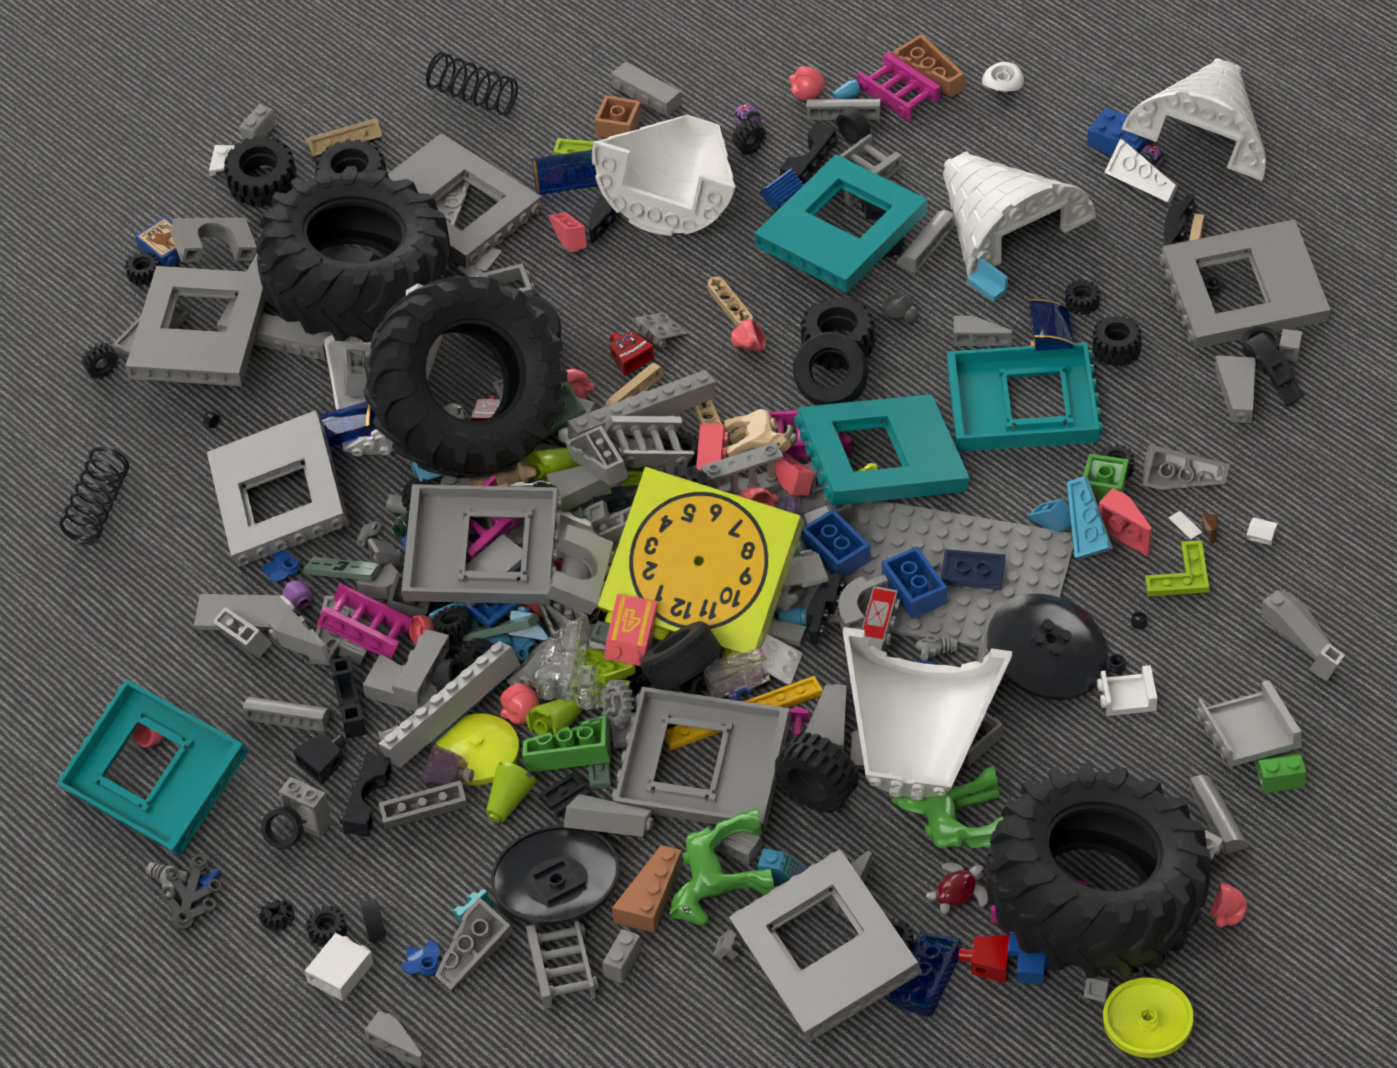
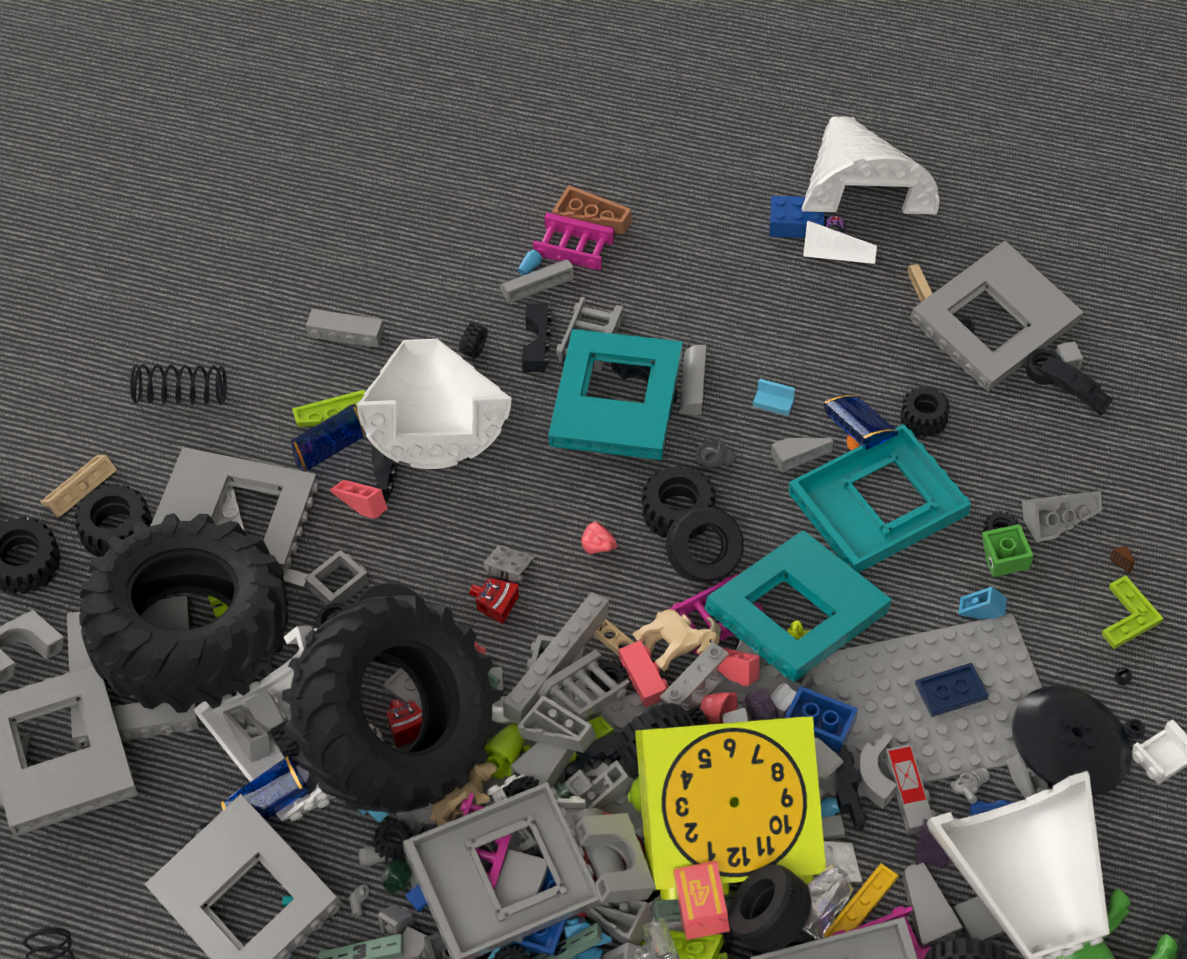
camera: 30 degrees left, 5 degrees up
(211, 419) = (122, 843): black hinge -> none
(487, 259) = (298, 558): white sticker -> none
(617, 116) = (339, 367): nougat brick -> none
(642, 381) = (524, 635): tan beam -> none
(726, 305) = (554, 514): tan beam -> none
(746, 112) = (456, 321): head -> none
(781, 189) = (535, 380): blue brick -> none
(806, 83) = (491, 269): coral piece -> none
(852, 125) = (556, 301): black tyre -> none
(916, 582) = (916, 725): blue brick -> none
(998, 199) = (741, 322): white cone -> none
(1003, 77) = (660, 199): white hat -> none
(1082, 289) = (864, 373): black tyre -> none
(1086, 521) = (1025, 602): medium azure wing -> none
(1125, 521) = (1056, 586): coral slope -> none
(1176, 220) = (898, 284): black slope -> none
(1185, 524) = (1095, 564): white sticker -> none
(1237, 385) = (1053, 413): light grey slope -> none
(1261, 531) = (1166, 543): white piece -> none

